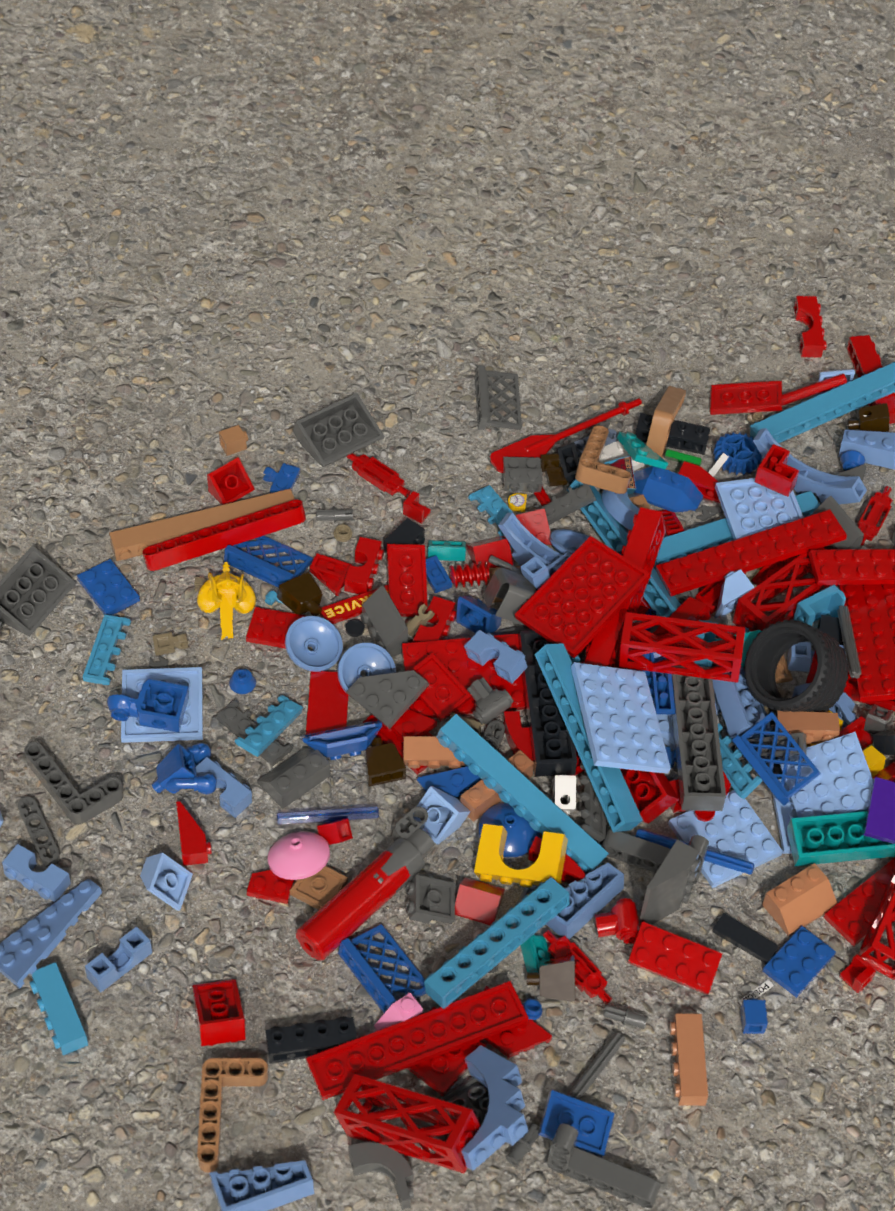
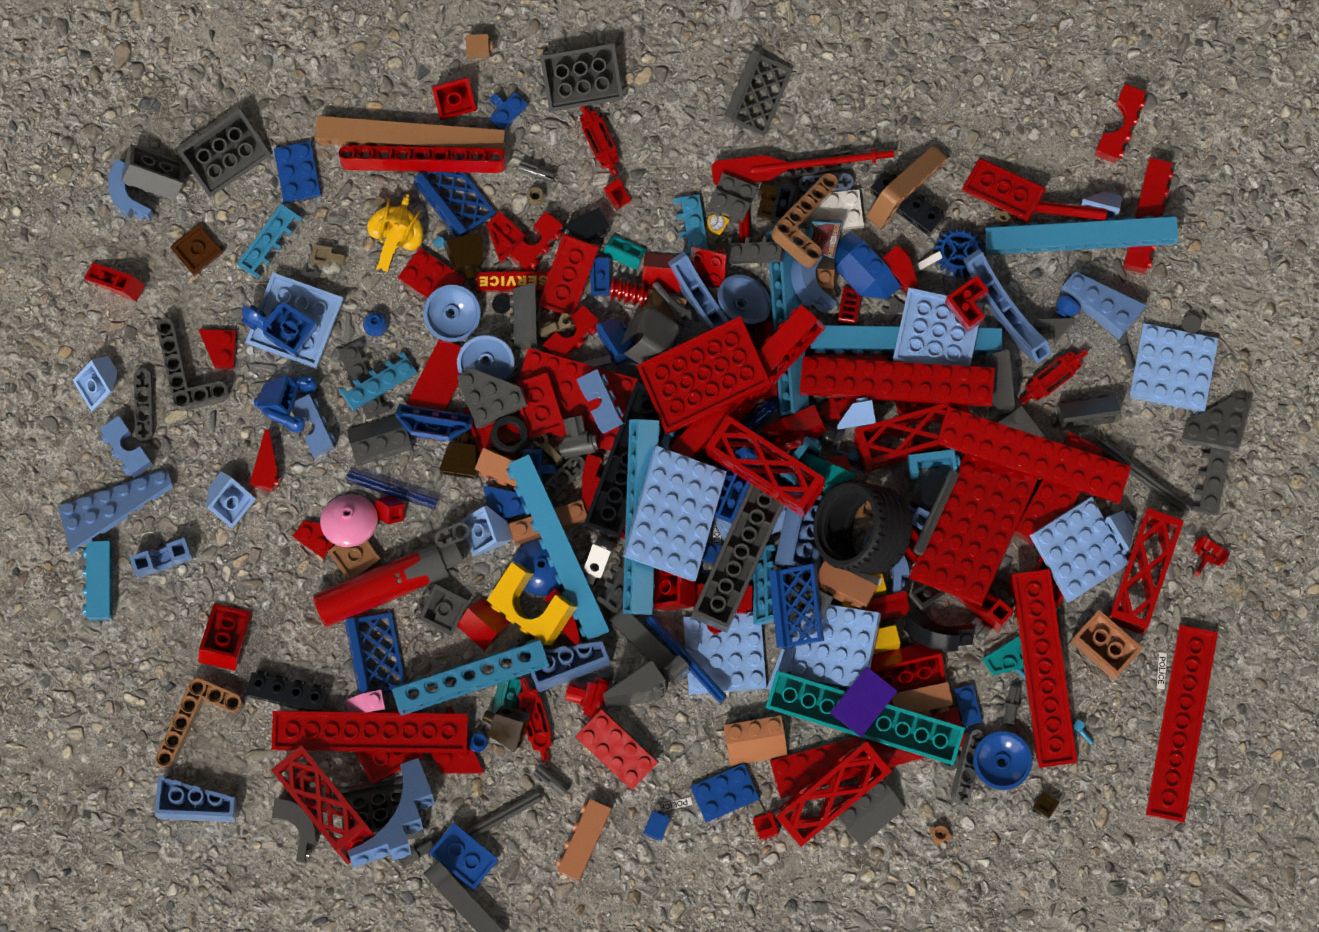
camera: 30 degrees right, 25 degrees up
(36, 682) = (196, 250): none -> reddish brown tile
(96, 754) = (220, 347): none -> red wing
(425, 708) = (508, 420): none -> black tyre
(538, 573) = (678, 331): medium blue arch -> none
(639, 451) = (856, 219): teal wing -> none
(681, 457) = (902, 237): green tile -> none
(745, 938) = (690, 753): black tile -> none
(871, 419) = (1111, 270): dark brown torso -> none

